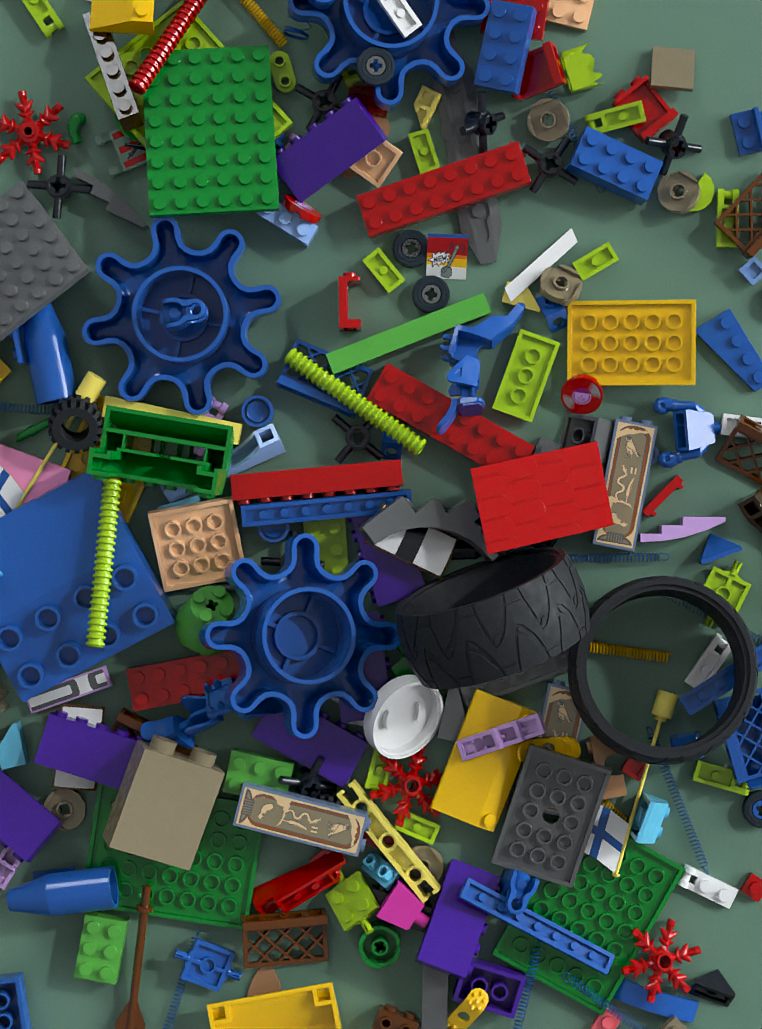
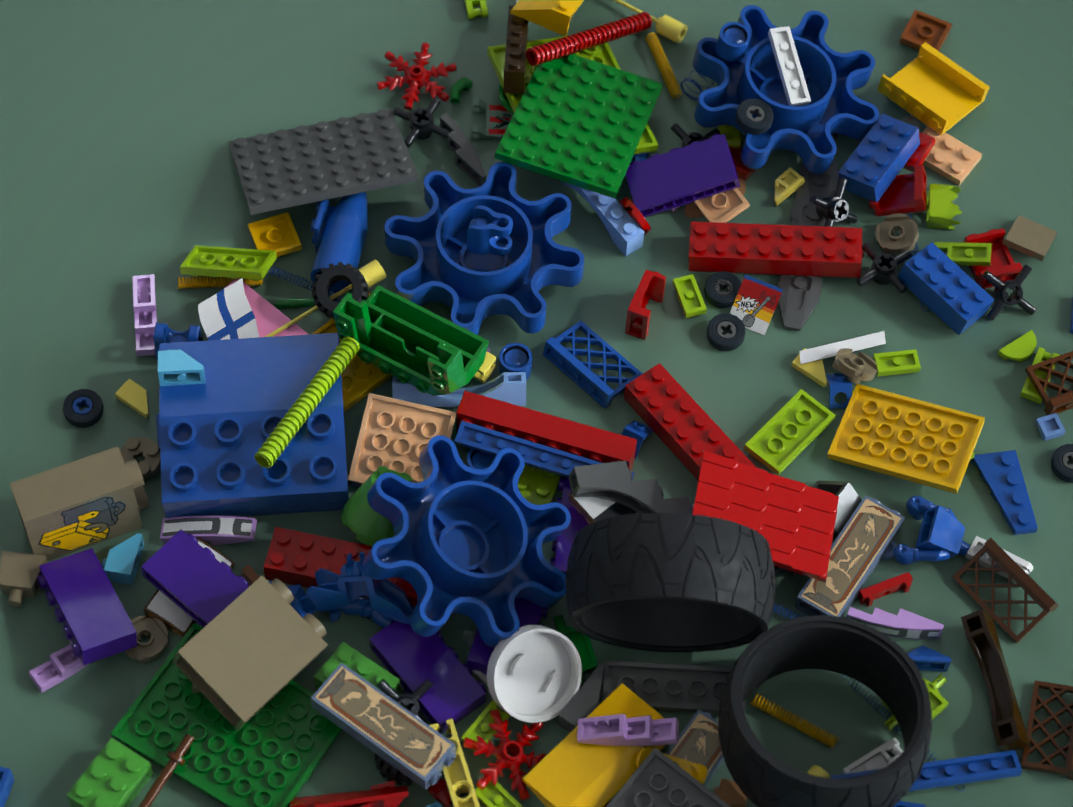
camera: 25 degrees right, 30 degrees down
(66, 892) = (104, 706): blue piece -> none
(282, 71) = (665, 114): lime plate -> none
(355, 401) = (614, 382): lime piece -> none
(365, 444) = (604, 413): black bar -> none
(408, 334) = (690, 352): bright green tile -> none
(423, 150) = (769, 211): lime plate -> none
(466, 365) = (738, 380): blue piece -> none
(582, 394) = (839, 463): red tile -> none
(678, 180) = (1000, 344): dark tan plate -> none

